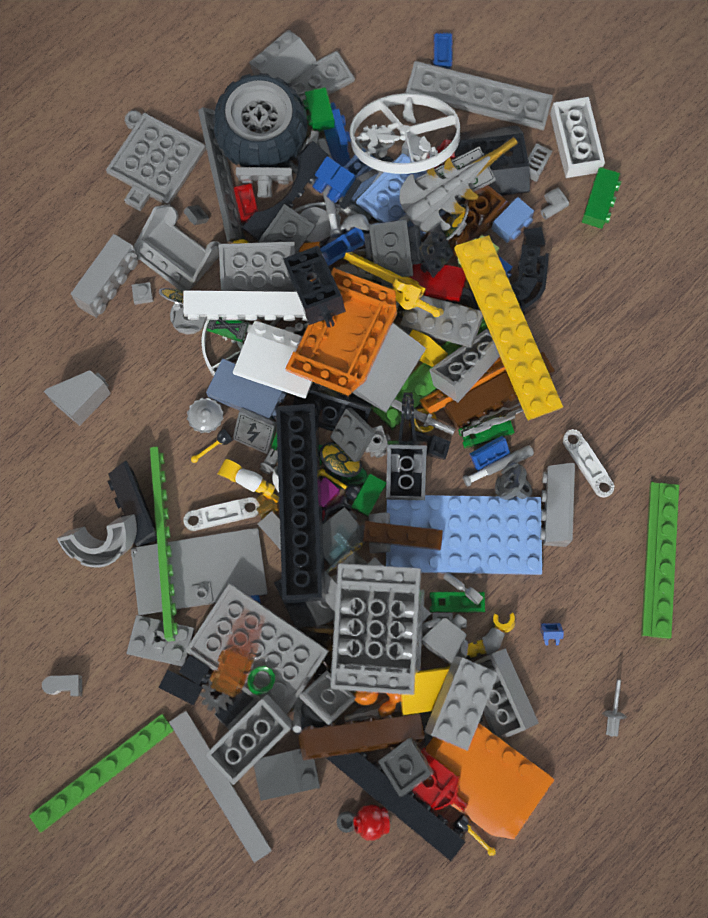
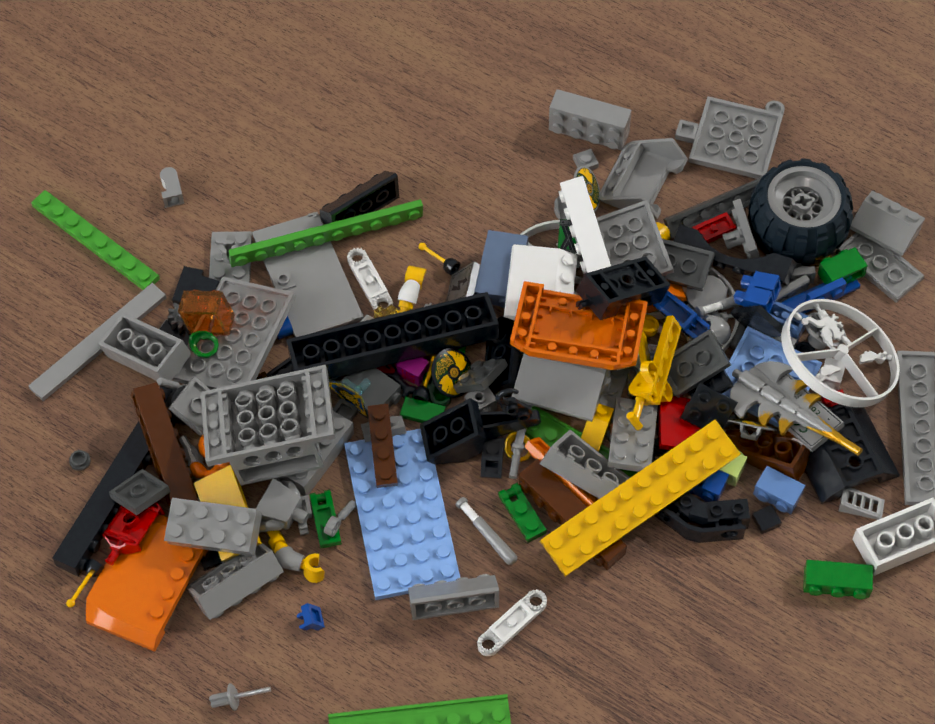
camera: 80 degrees right, 15 degrees down
(79, 395) = (457, 128): light grey slope -> none
(97, 553) = (310, 181): light grey brick -> none
(196, 215) = (685, 186): dark grey plate -> none
(205, 415) = (467, 241): light grey piece -> none
(285, 775) = (114, 397): dark grey slope -> none
(371, 822) = (81, 478): red piece -> none
(489, 453) = (497, 518): blue plate -> none
(493, 418) = (537, 514): light grey sword -> none
(512, 483) = (467, 544): dark grey tile -> none
(556, 202) = (816, 535): light grey piece -> none

